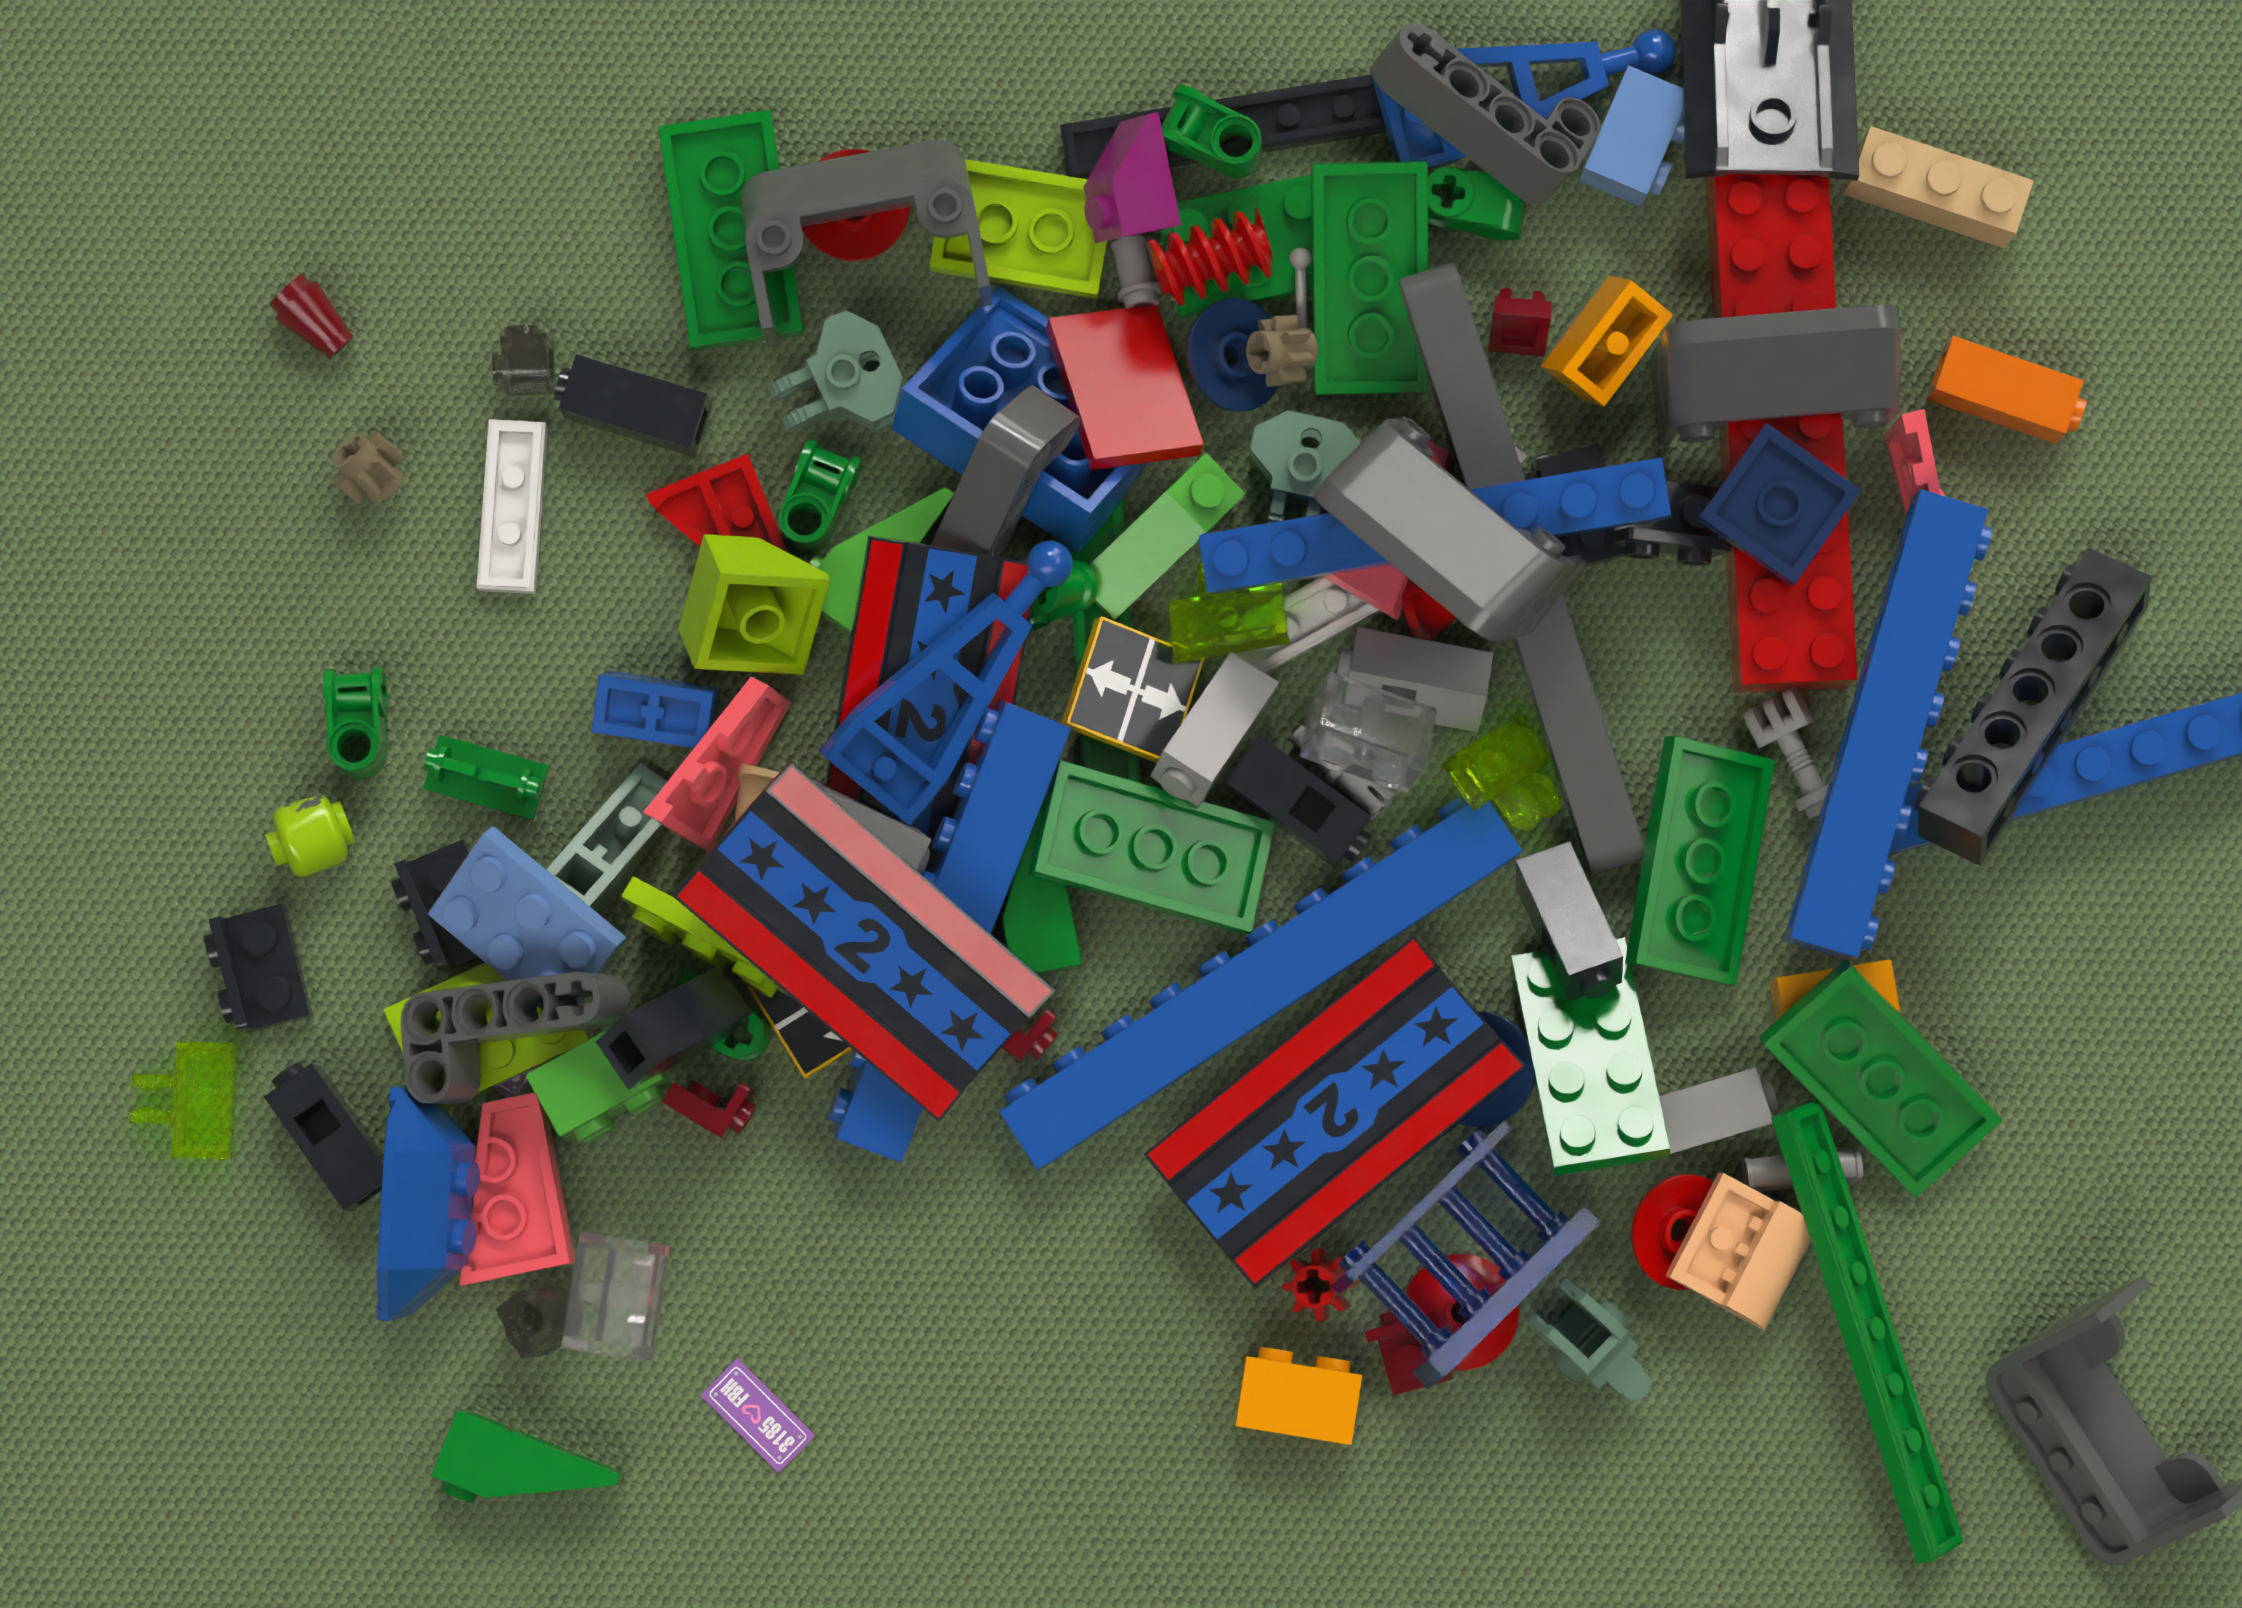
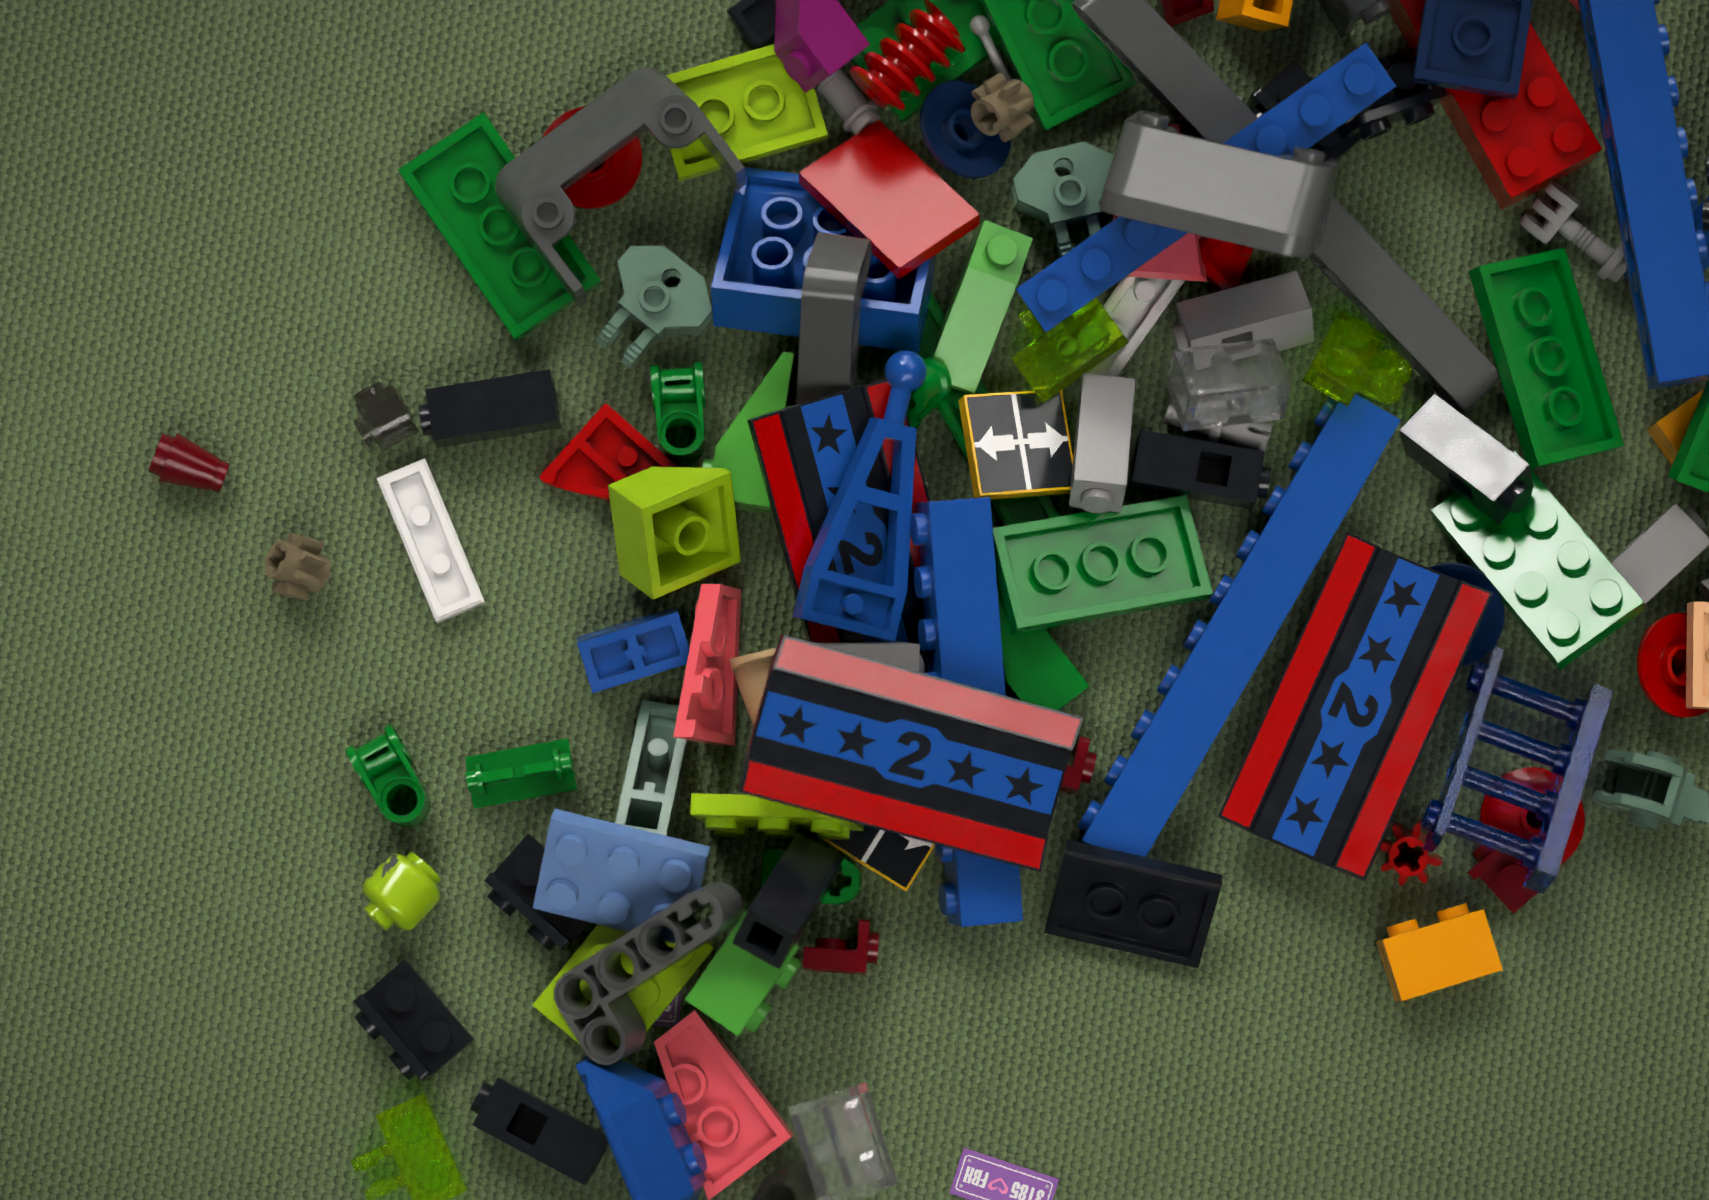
camera: 30 degrees left, 0 degrees up
(1019, 1199) = (1133, 903): none -> black tile

